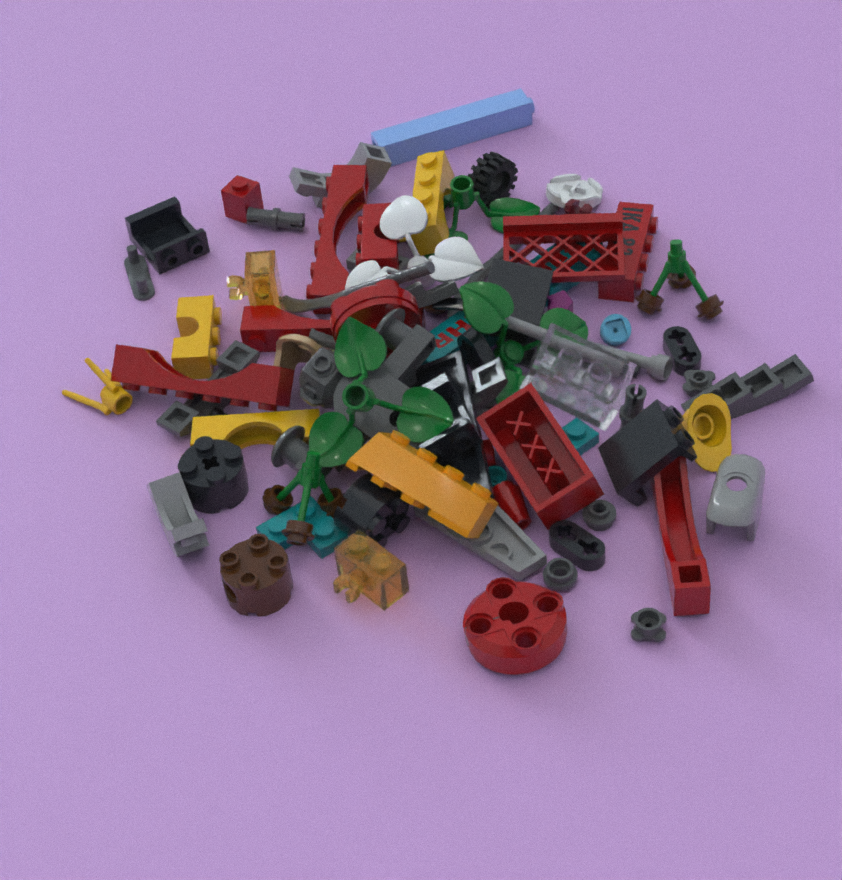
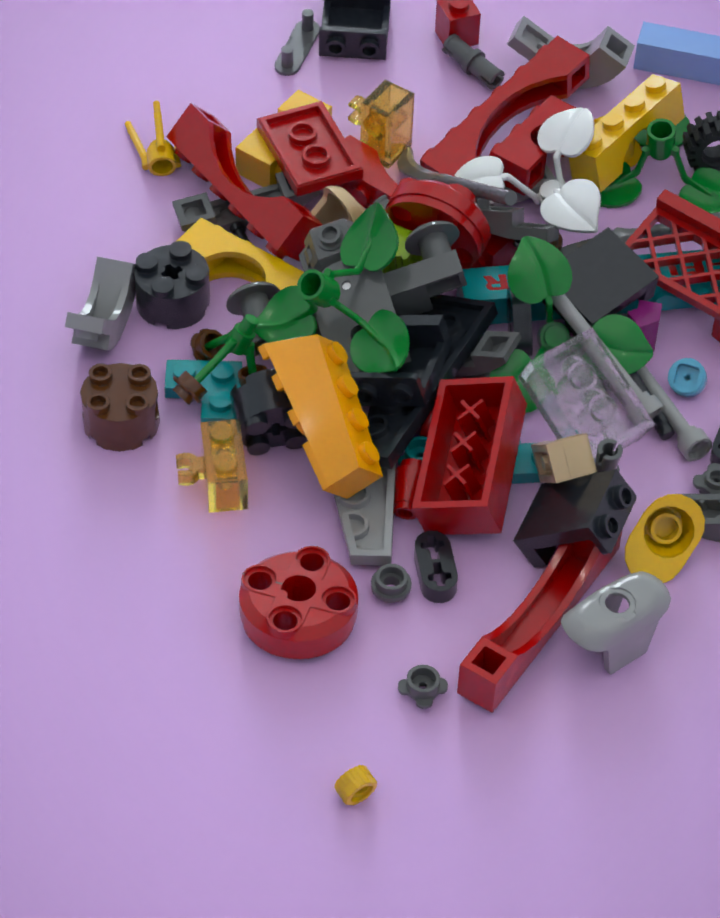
camera: 30 degrees right, 5 degrees up
(227, 329) = (309, 148): none -> red tile
(599, 515) = (485, 559): dark grey plate -> none
(604, 421) = (563, 458): none -> tan plate
(674, 718) = (355, 785): none -> yellow axle

